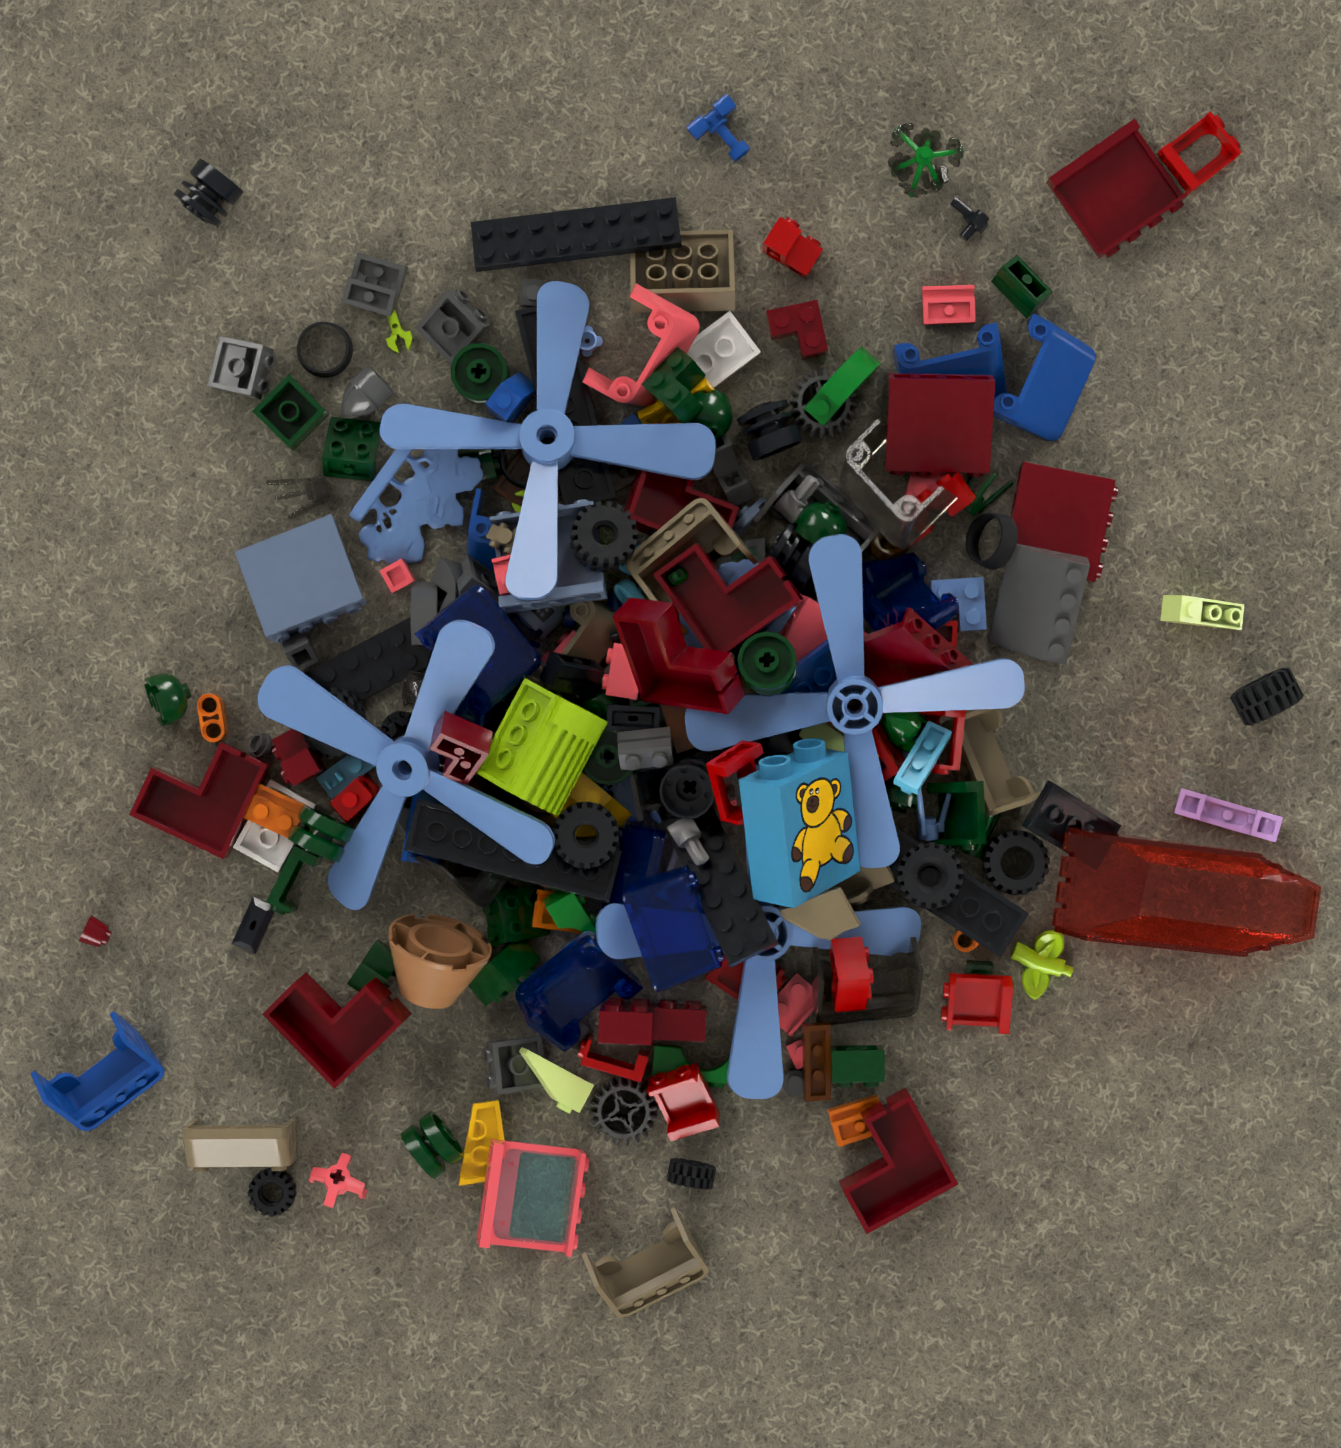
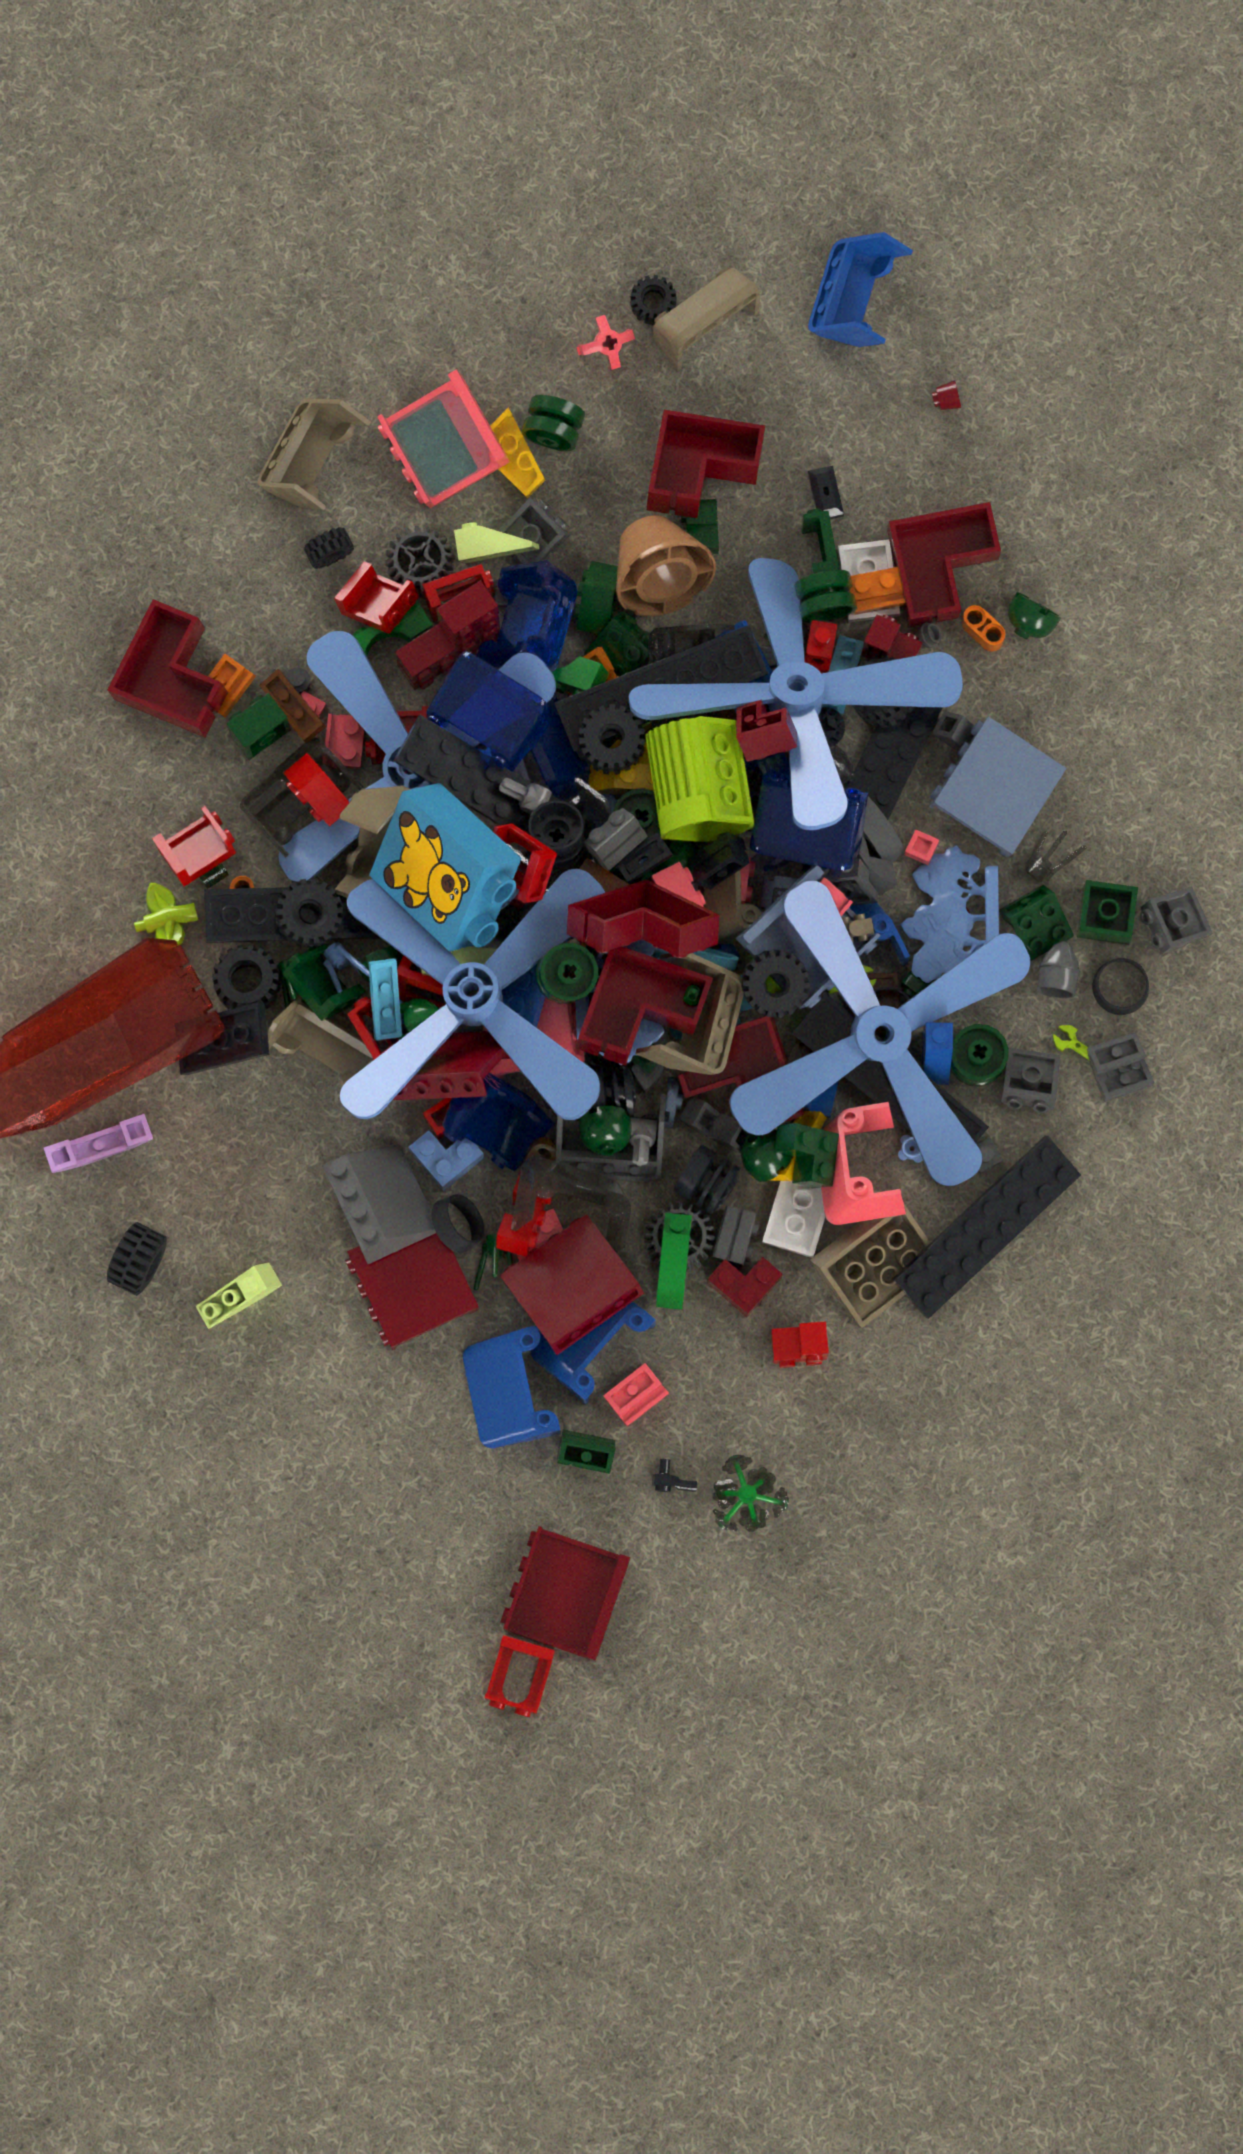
camera: 145 degrees right, 10 degrees down
(715, 122) = (943, 1404): blue bar -> none
(779, 371) = (735, 1235): none -> dark grey brick

